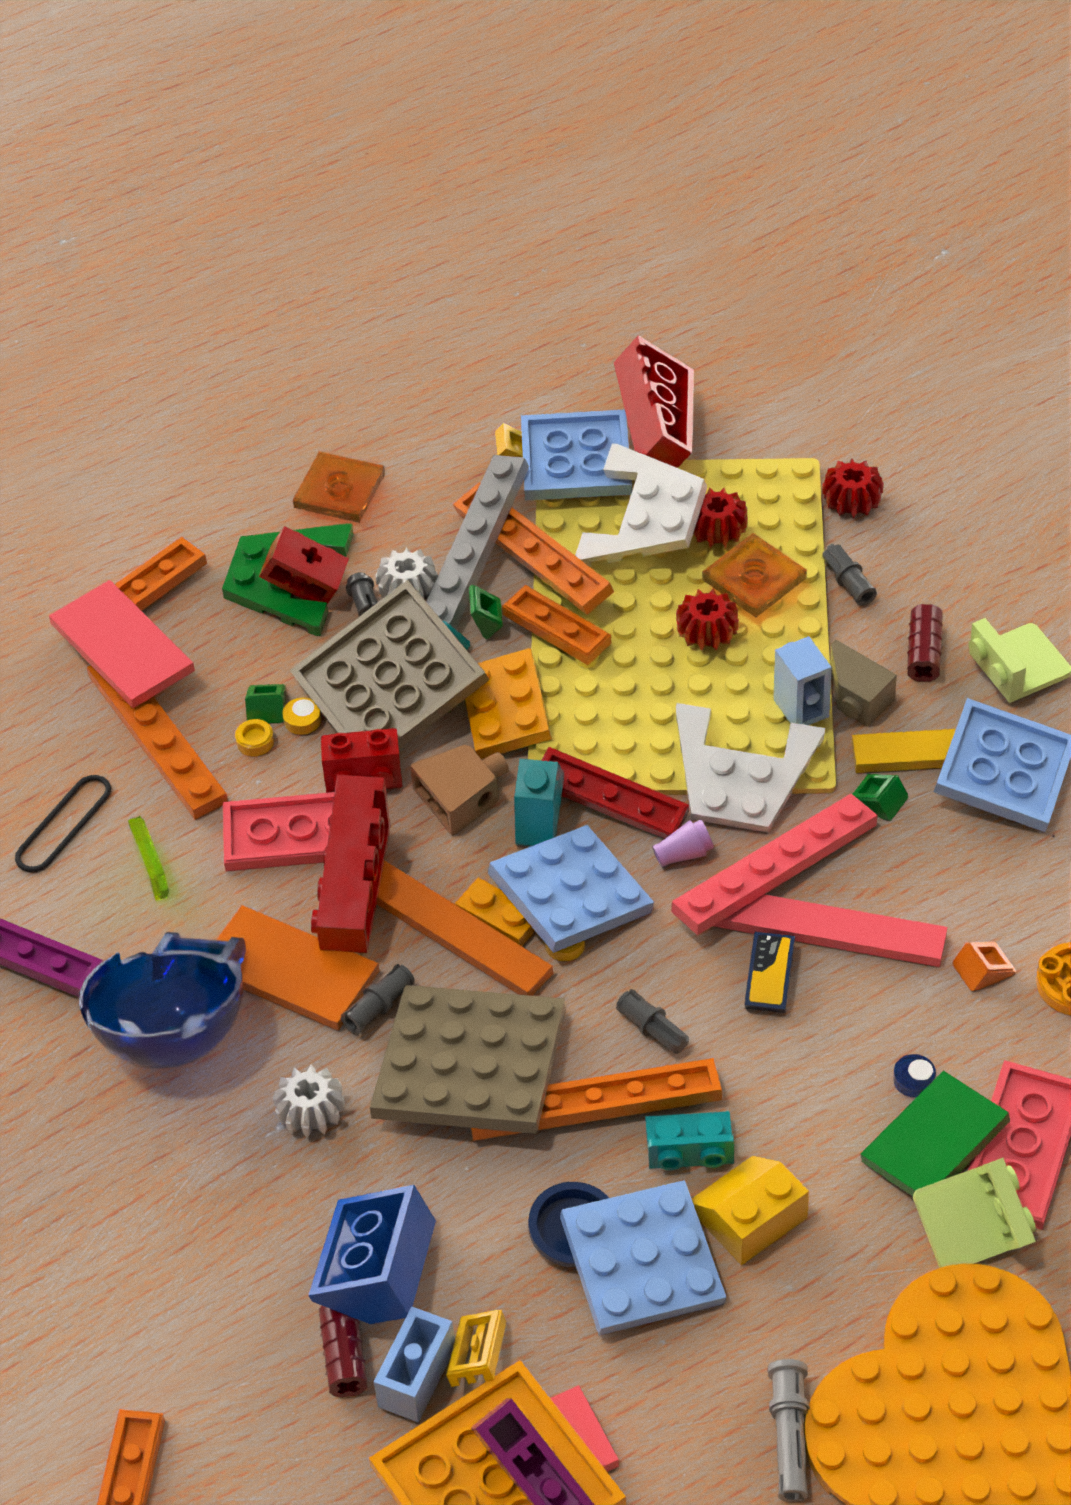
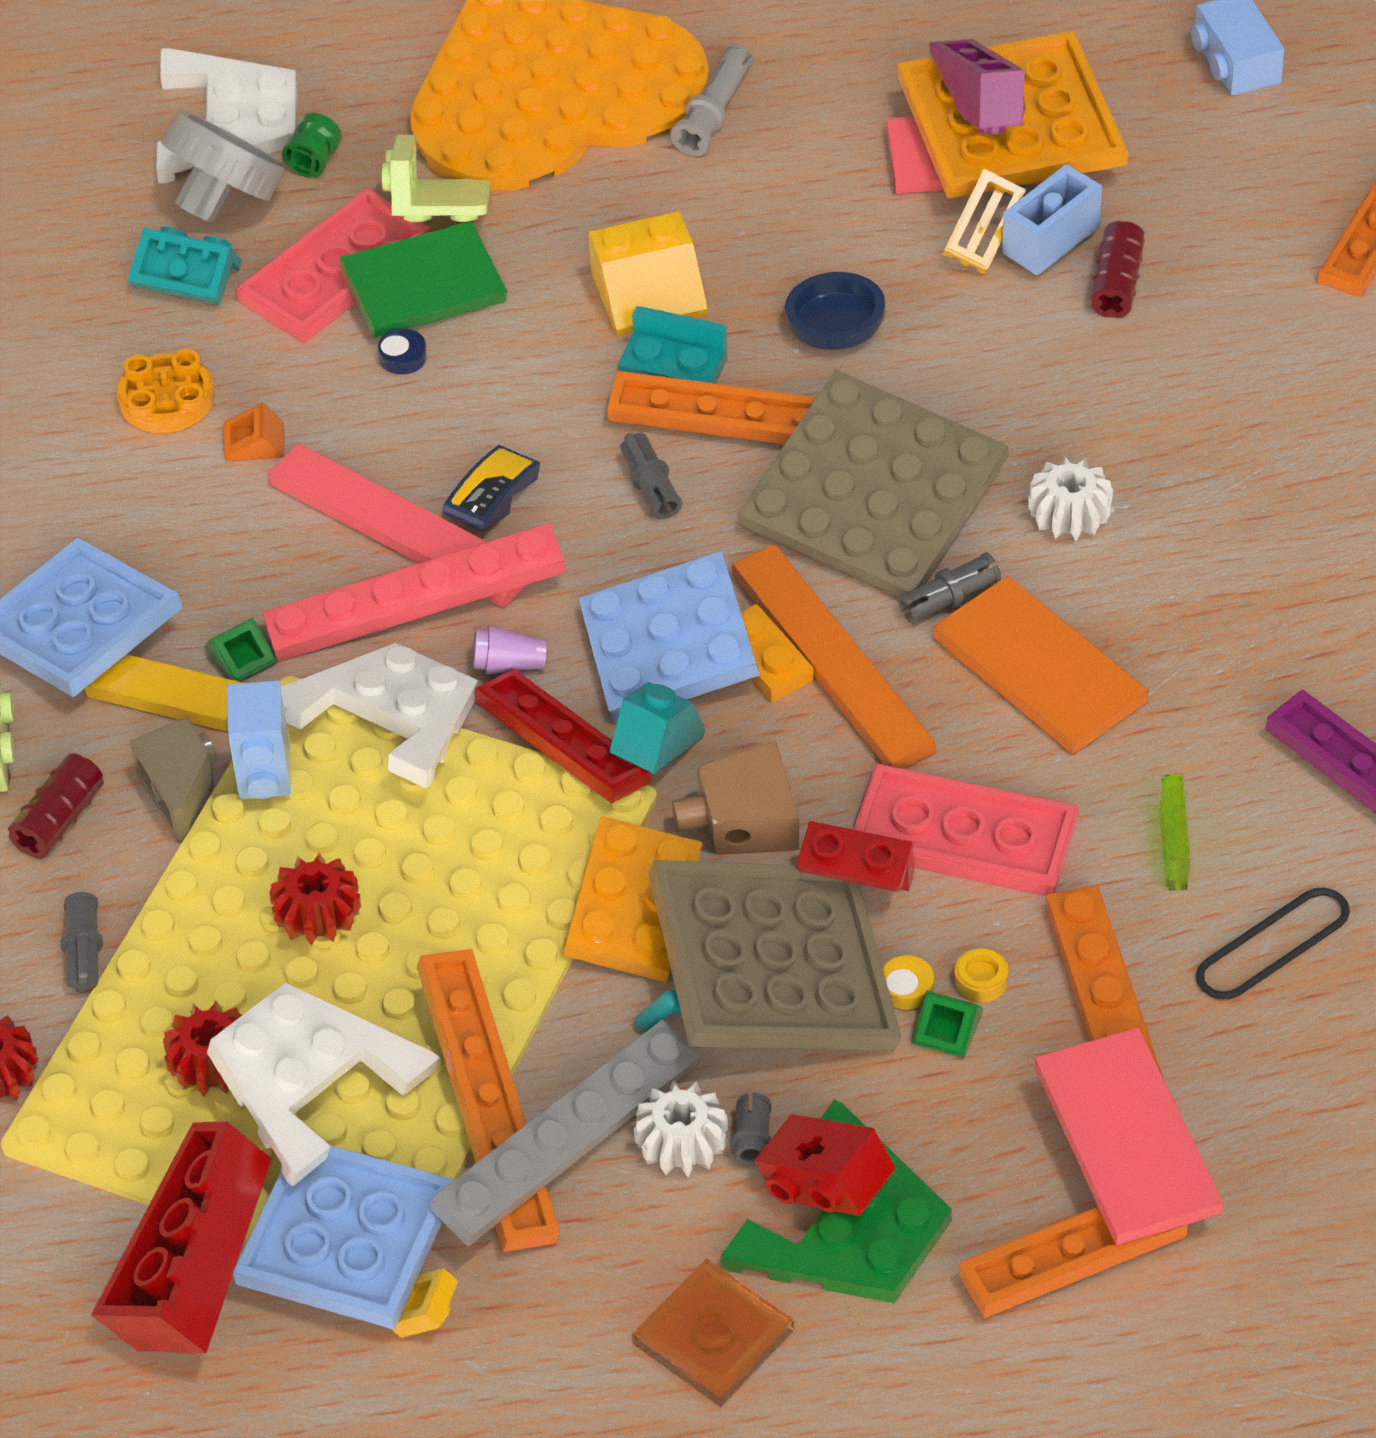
camera: 160 degrees left, 0 degrees up
(165, 1003) = (1202, 593): clear blue windscreen -> none
(352, 864) = (922, 707): red wedge -> none
(374, 1255) = (1059, 311): blue slope -> none
(485, 611) = (595, 1028): green slope -> none
(556, 624) = (513, 981): orange tile -> none
(642, 1257) = (780, 258): light blue plate -> none
(754, 575) = (213, 952): clear orange plate -> none

